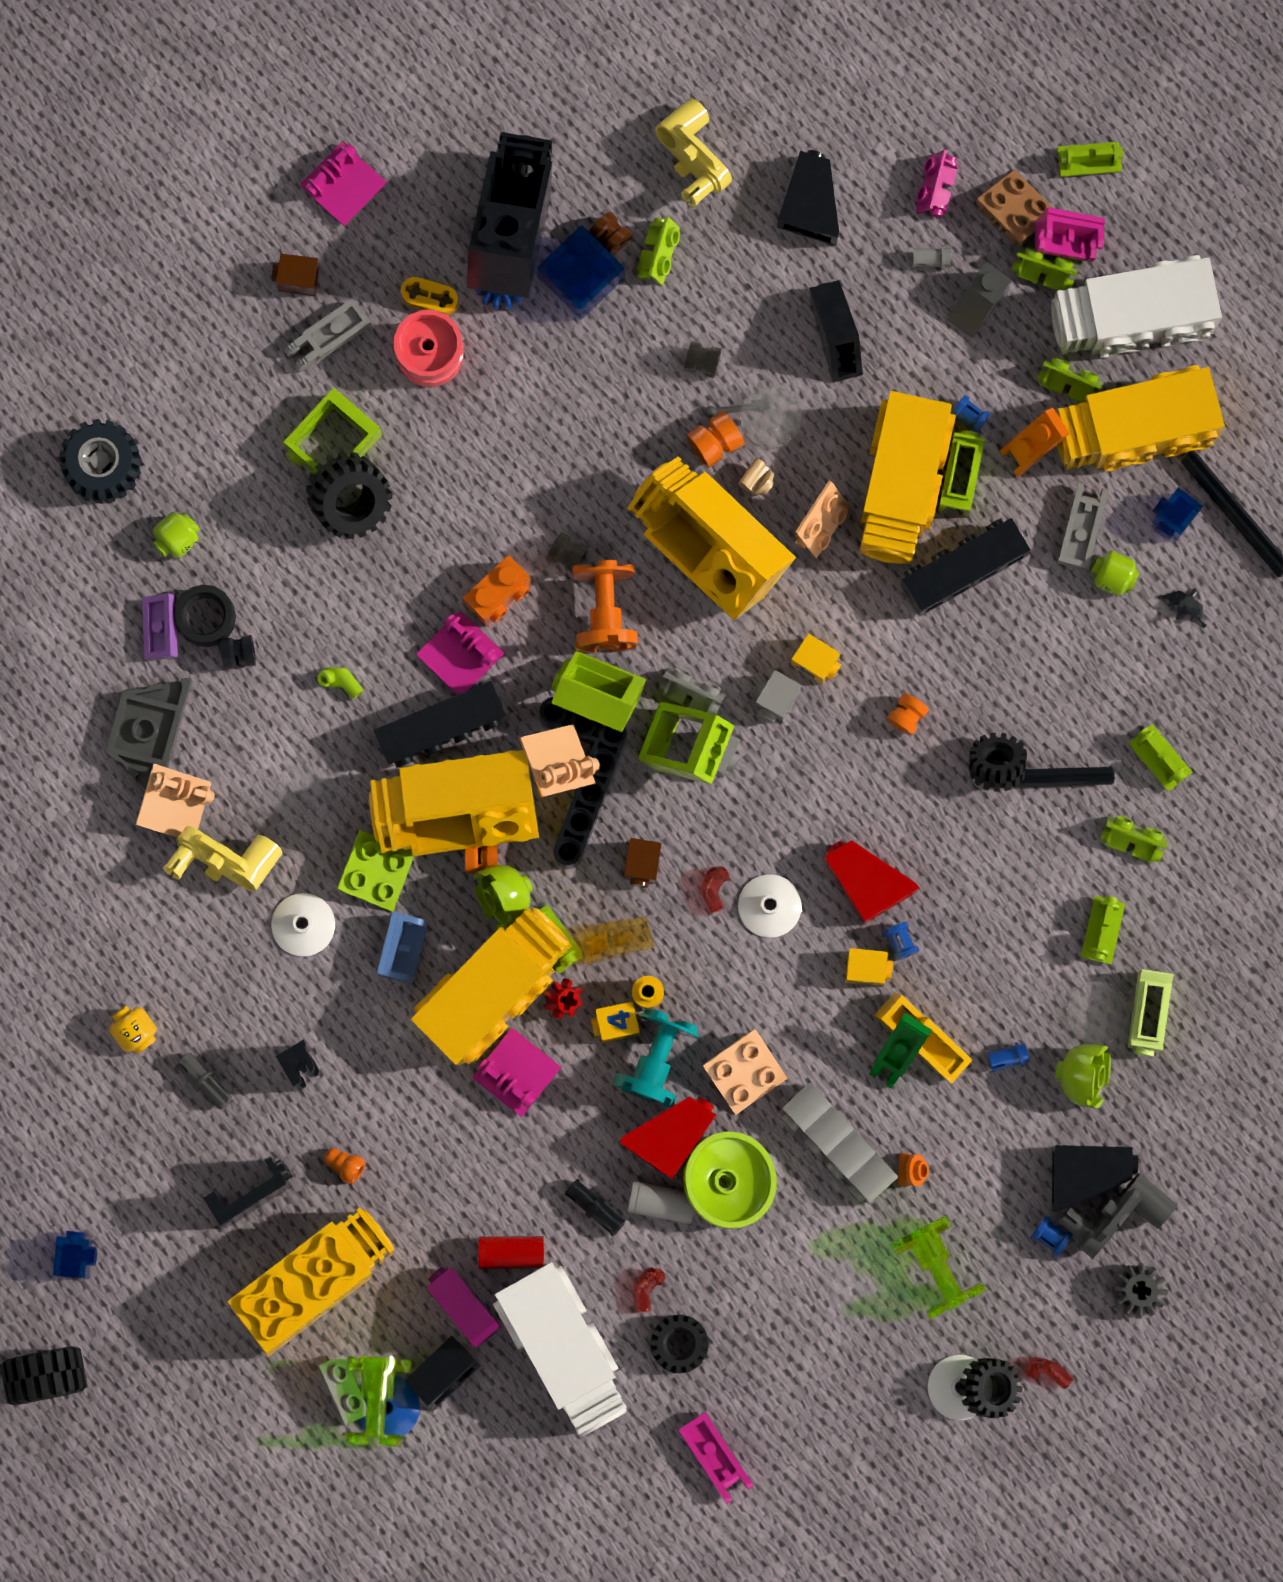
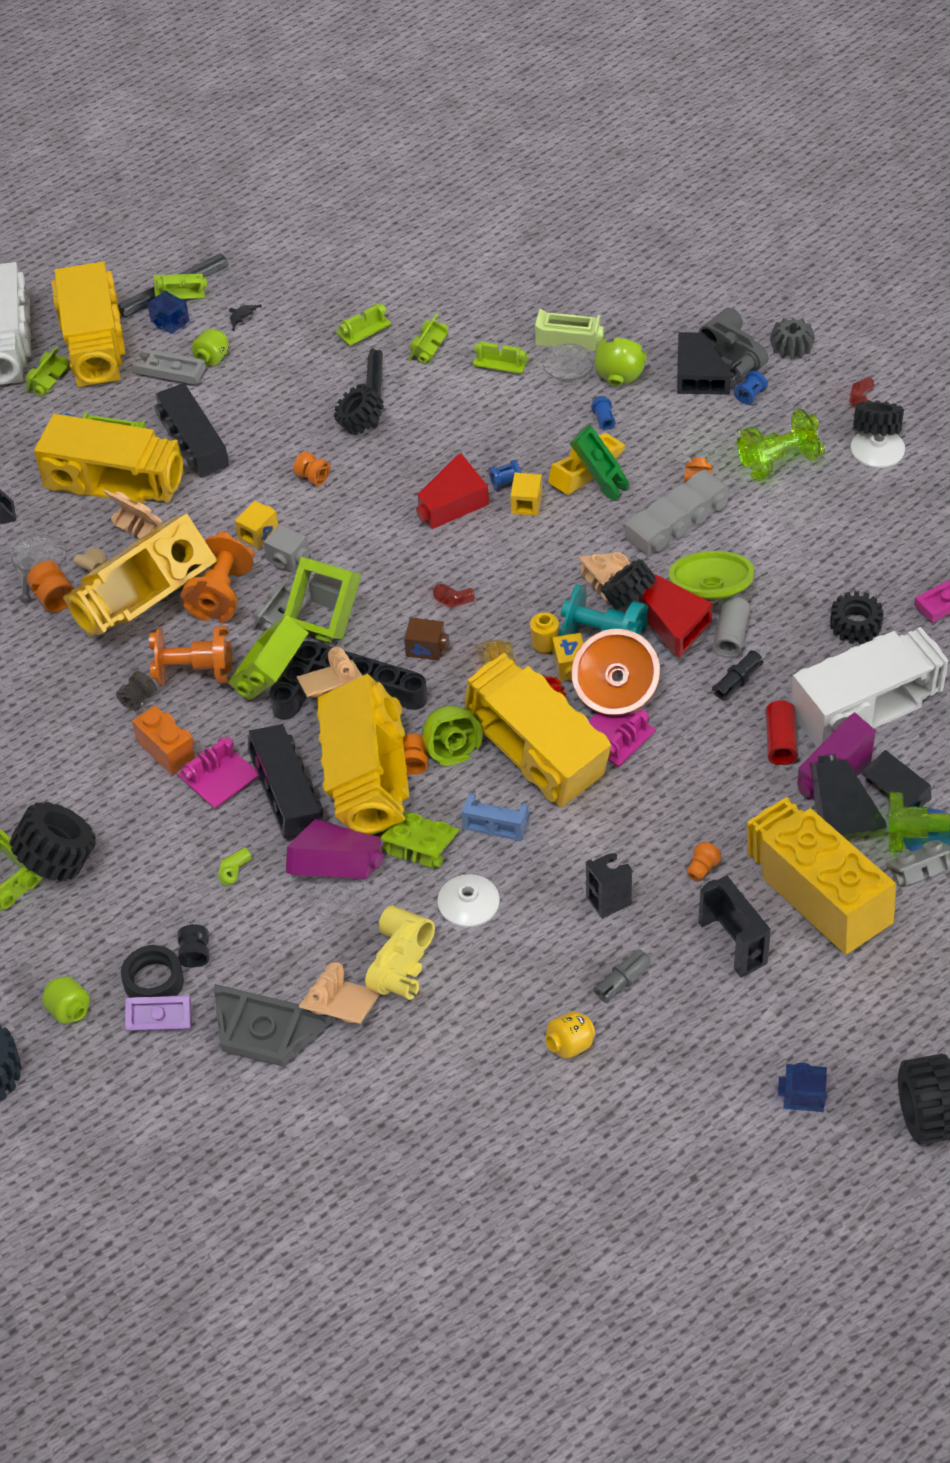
camera: 85 degrees left, 30 degrees down
(344, 782) = (333, 852): none -> magenta slope
(405, 1313) = (842, 797): none -> black slope
(562, 1068) = (614, 653): none -> orange dish
(644, 1285) = (807, 644): clear red arm -> none
(696, 1084) = (628, 583): none -> black tyre
(707, 621) = (211, 594): none -> orange piece
(769, 922) = (469, 563): white dish -> none
(1036, 440) = (94, 379): orange hinge -> none
(1224, 522) = (181, 285): none -> lime hinge

